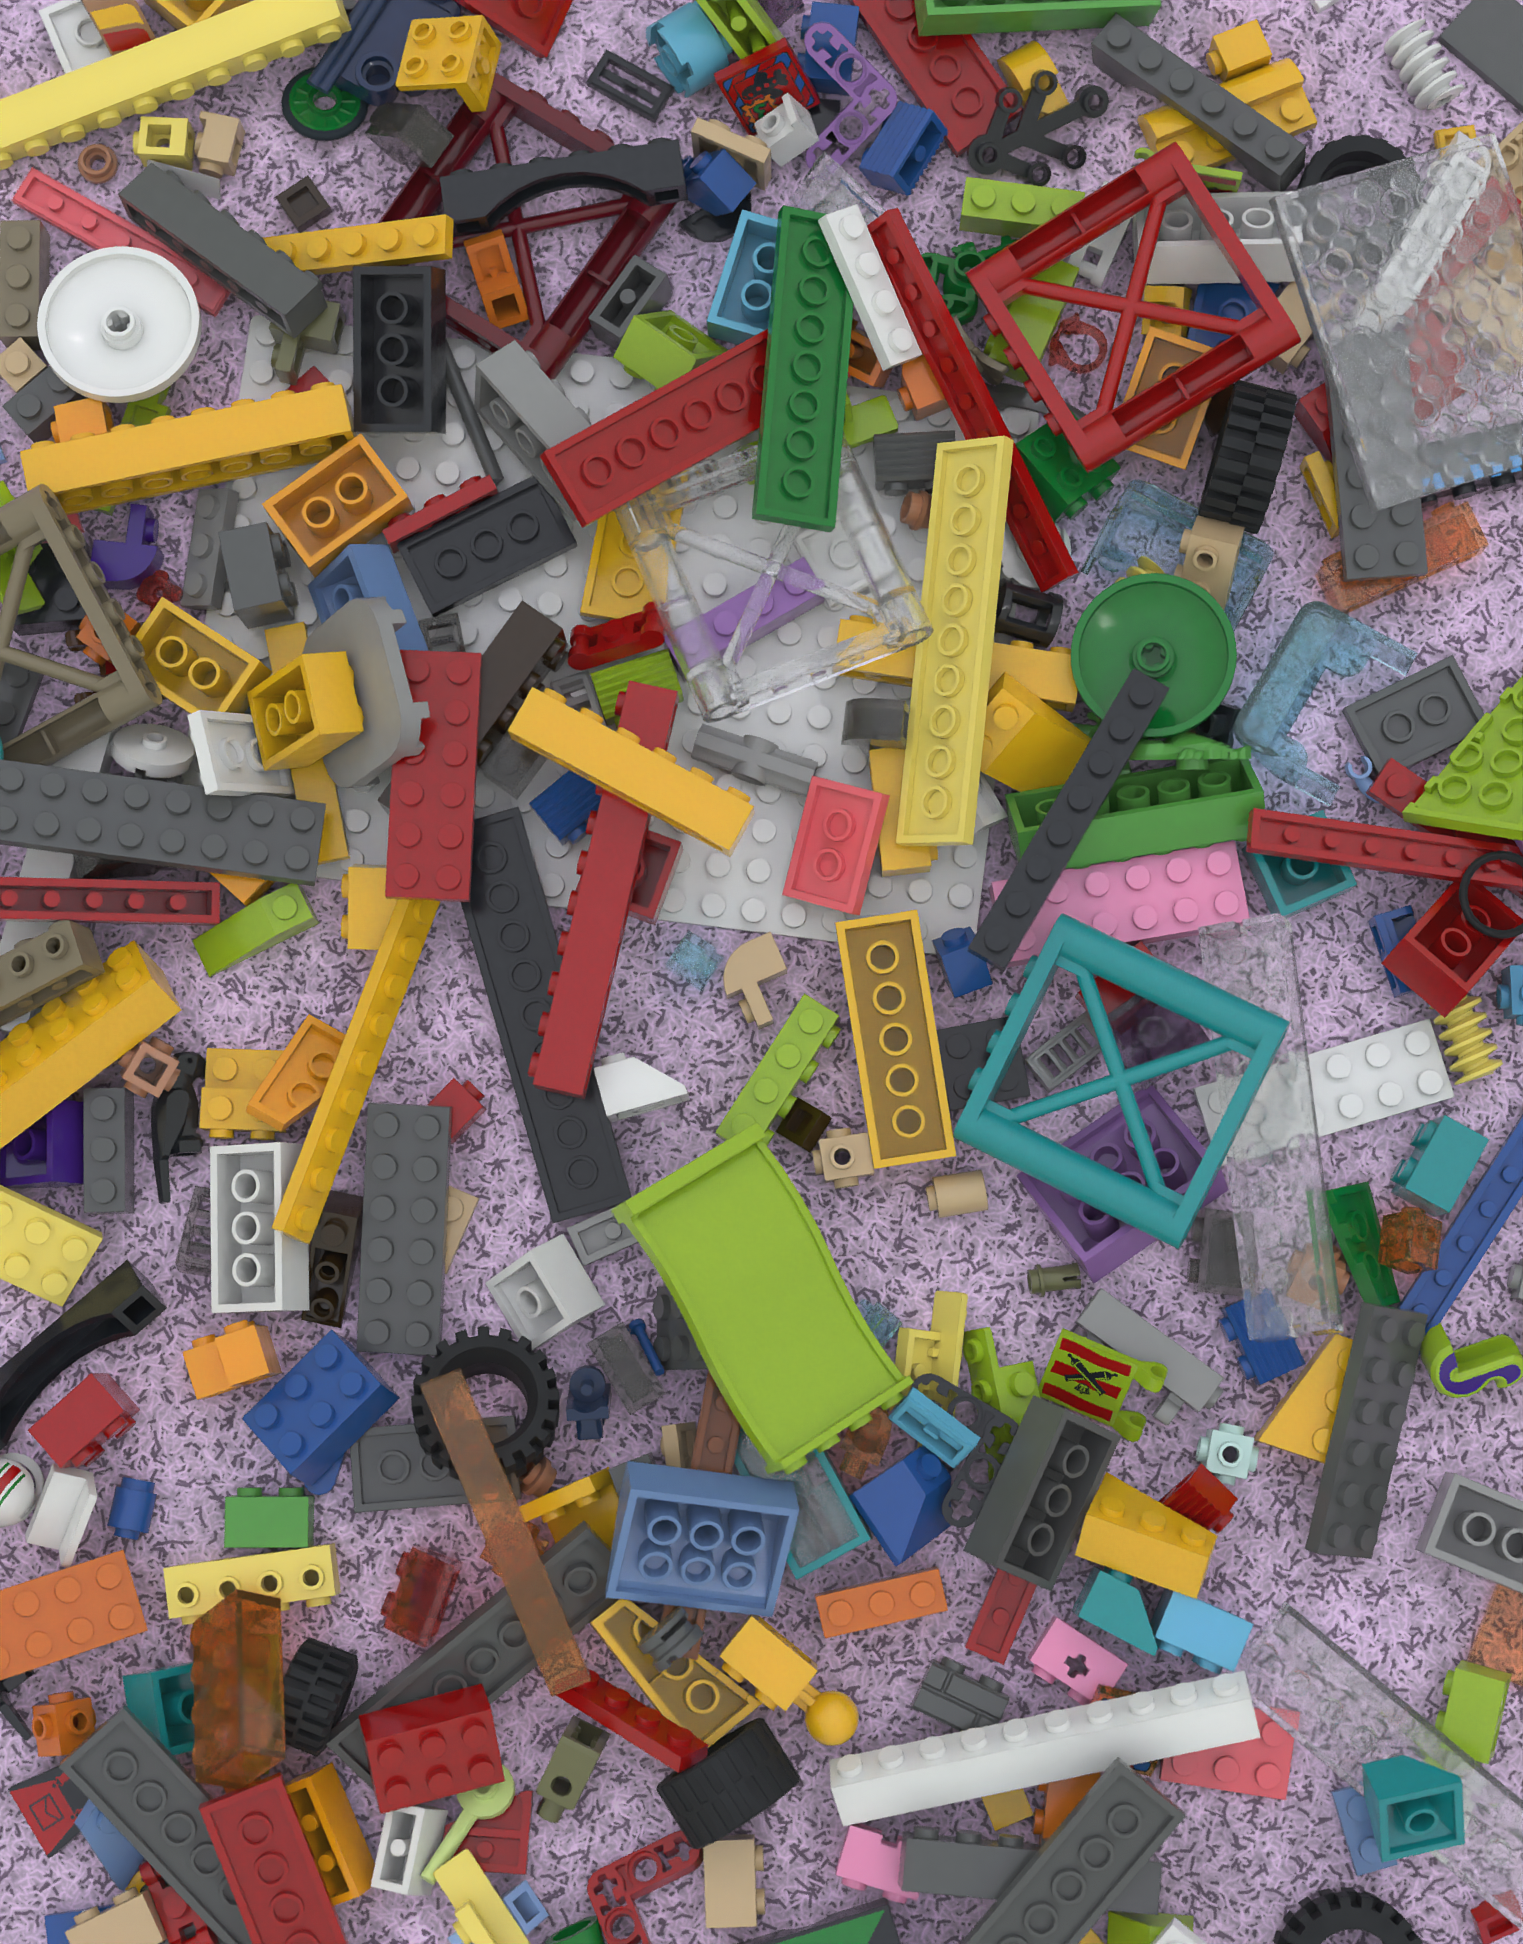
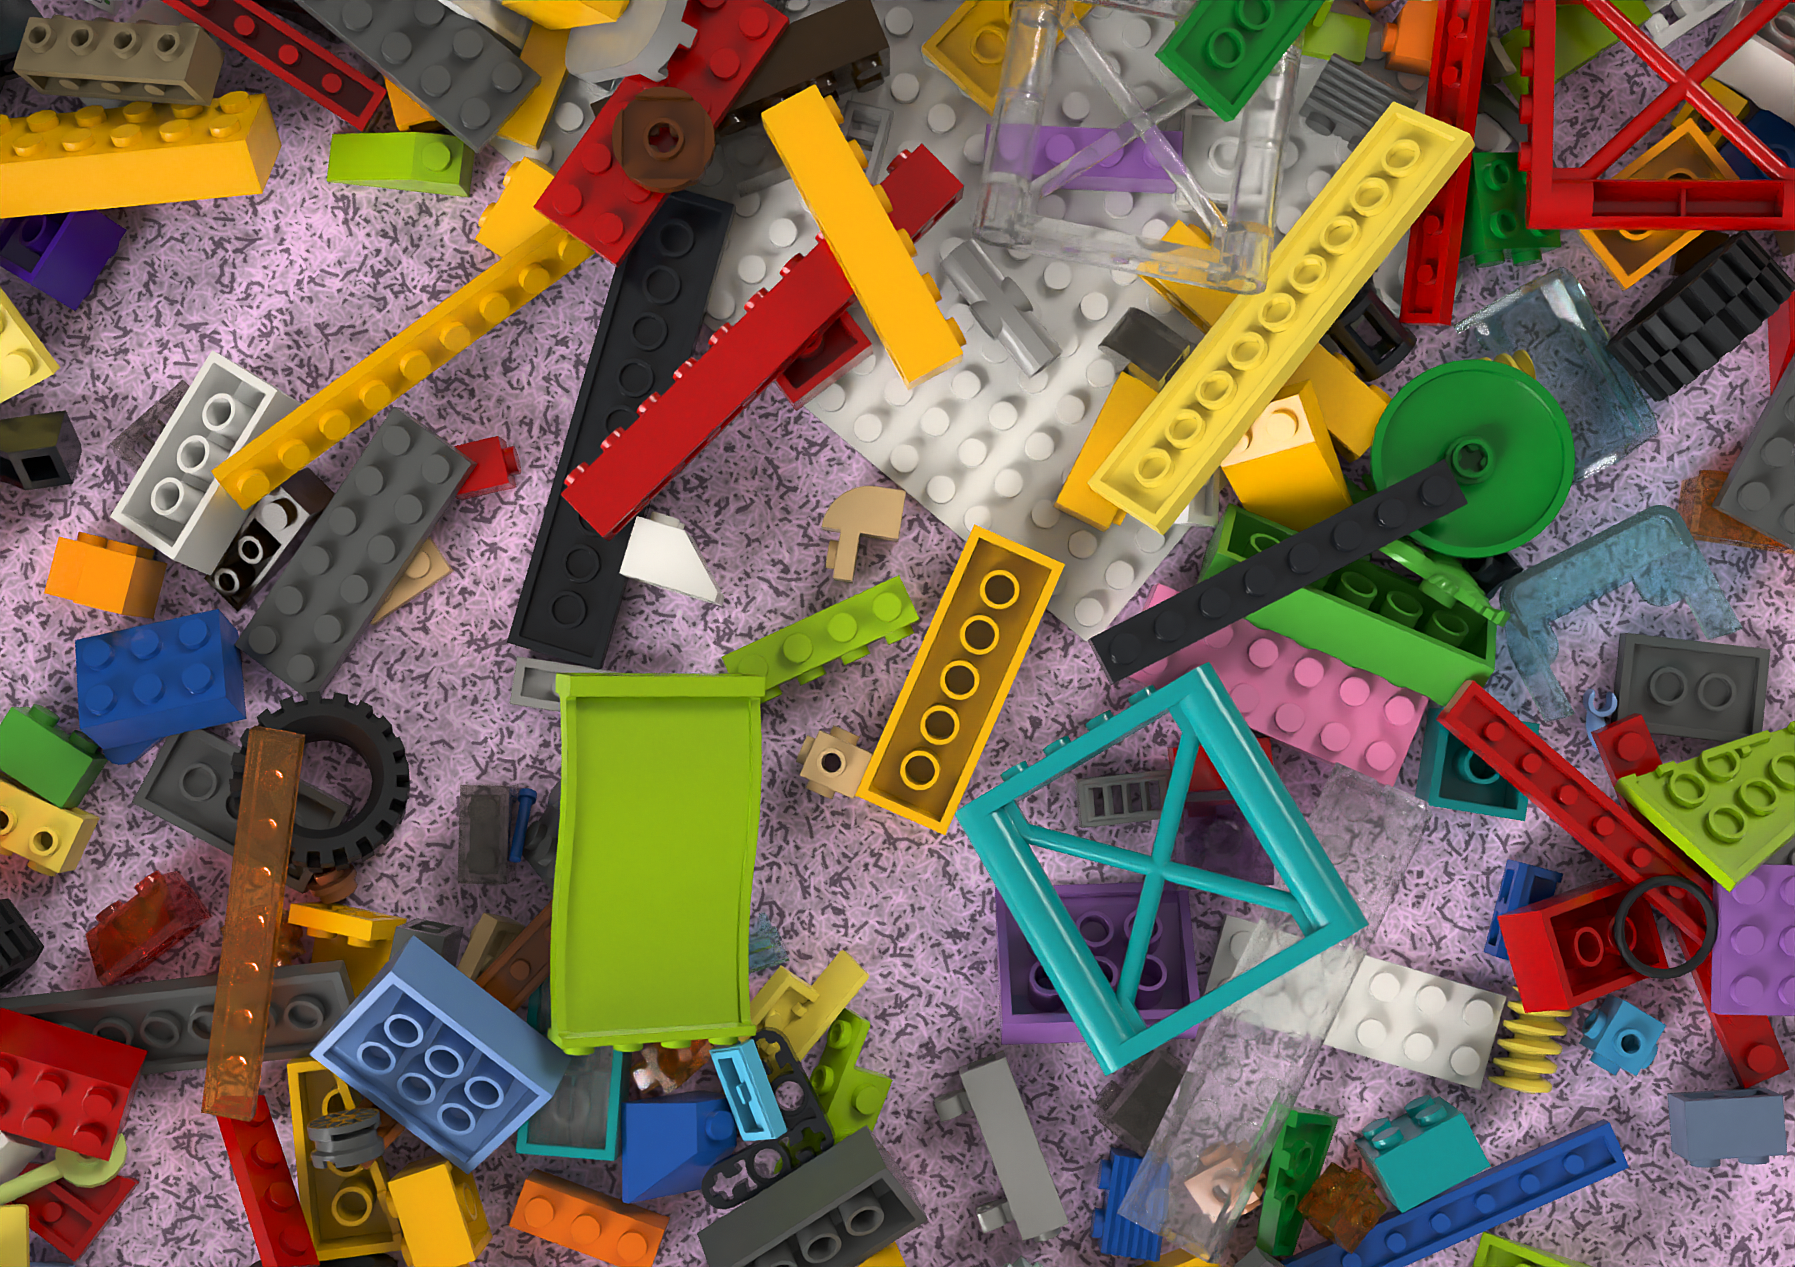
camera: 25 degrees right, 5 degrees up
(108, 1150) = (114, 291): dark grey brick -> none
(153, 1082) = (187, 244): nougat brick -> none
(175, 1121) = (205, 297): black animal -> none
(229, 1085) = (287, 319): yellow plate -> none
(298, 1075) = (343, 334): light orange wing -> none
(457, 768) = (686, 120): none -> reddish brown plate
(545, 1292) = (456, 706): white slope -> none
(566, 807) = (780, 233): blue brick -> none
(573, 1759) = (180, 1189): olive torso -> none
(588, 1402) = (425, 844): dark blue hips -> none
(615, 639) = (938, 95): red plate -> none
(651, 669) = (955, 150): lime brick -> none
(694, 961) = (812, 471): clear light blue brick -> none
(804, 1125) = (816, 704): dark brown plate -> none
(835, 845) = (1026, 446): coral plate -> none
(916, 510) = (1326, 158): nougat plate -> none
(957, 1194) = (924, 869): tan brick -> none
(960, 969) = (1069, 650): blue brick -> none
(964, 1051) = (1020, 736): black plate -> none
(1053, 1278) = (965, 1013): olive pin -> none
(1075, 326) = (1604, 73): clear red piece -> none
(1096, 1380) = (943, 1146): lime flag -> none
(1211, 556) = (1596, 392): tan brick -> none
(1320, 481) = (1751, 390): yellow plate -> none

